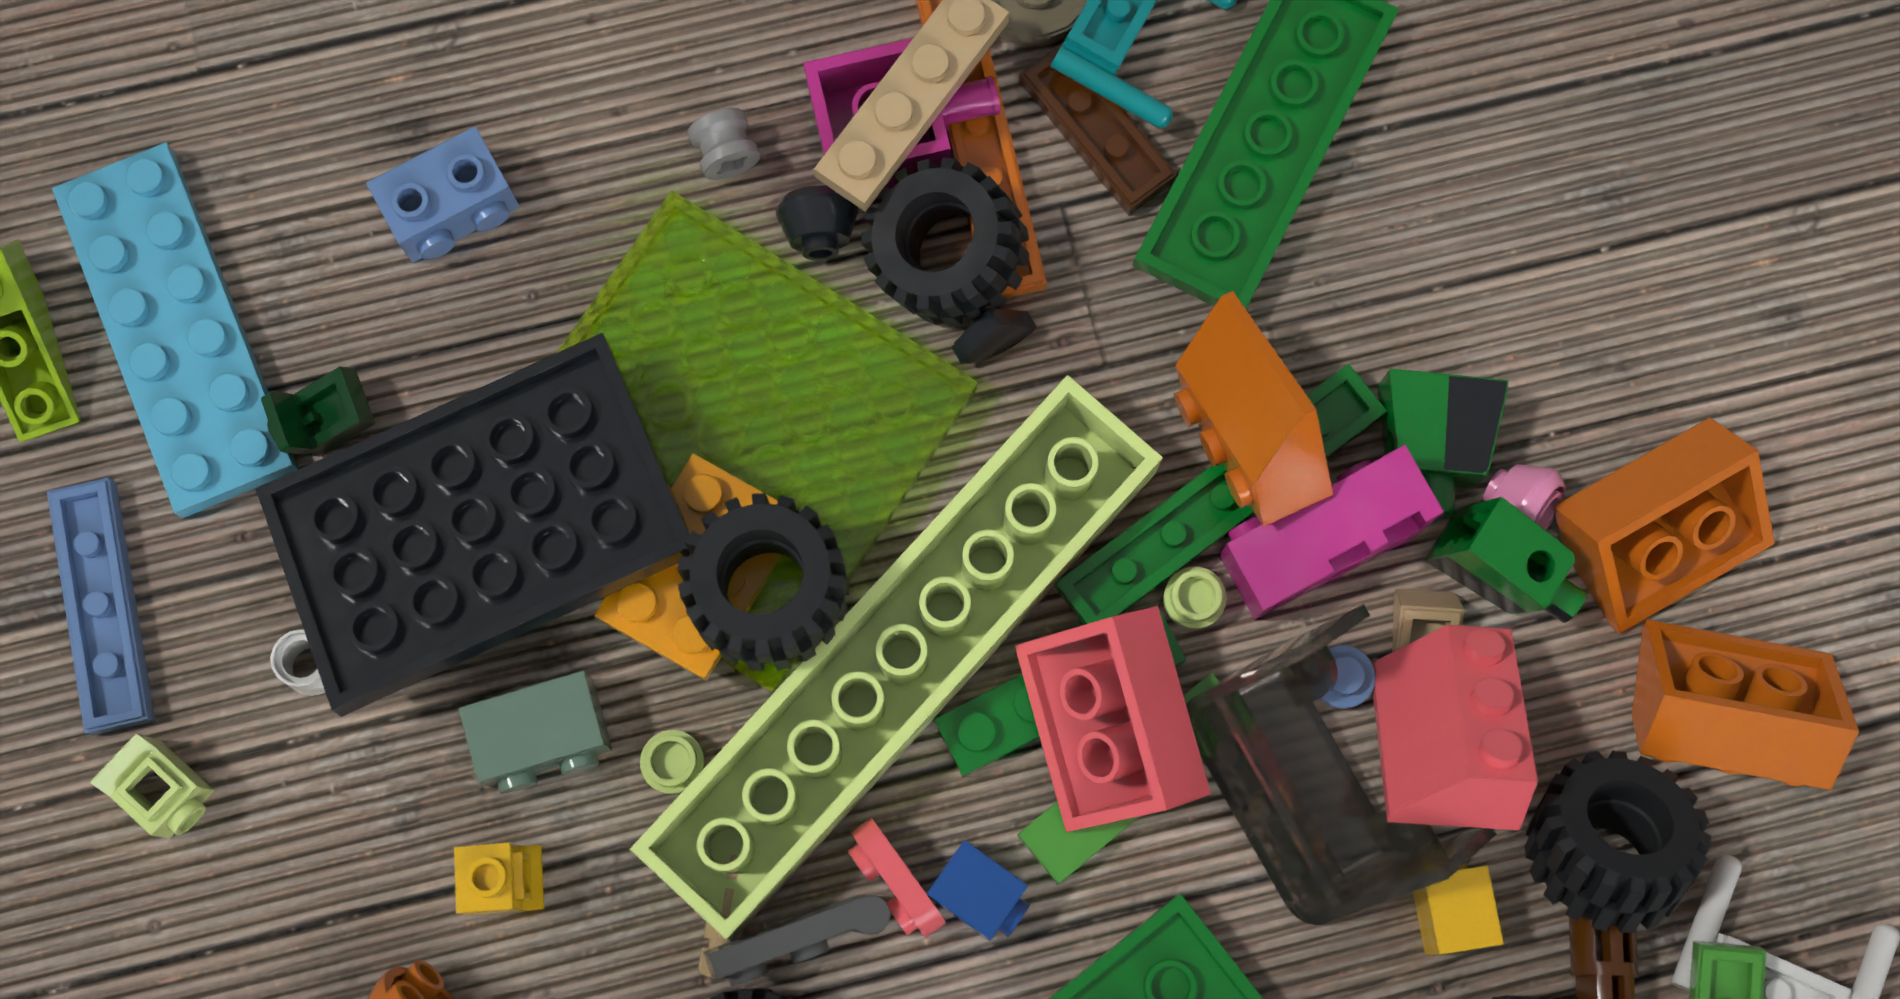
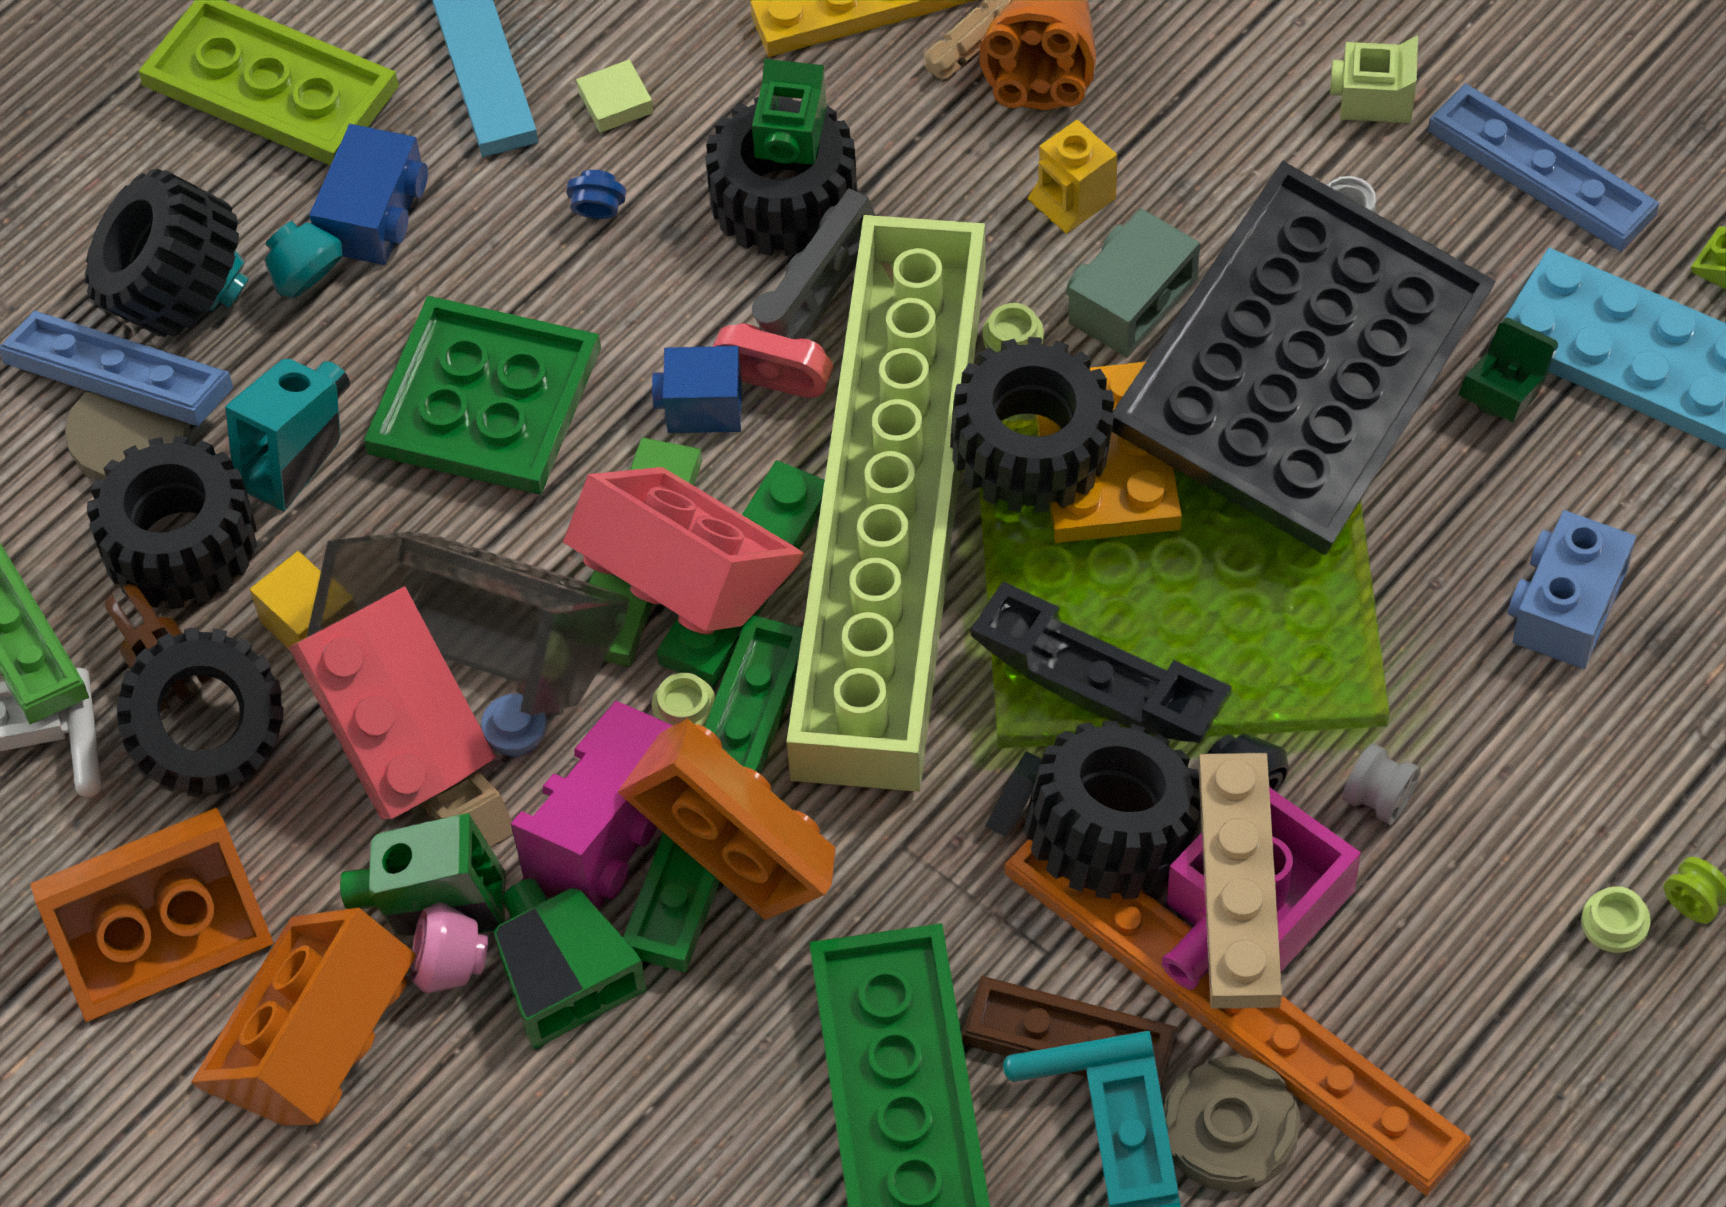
camera: 150 degrees right, 20 degrees down
(864, 359) = (1094, 673): none -> black slope

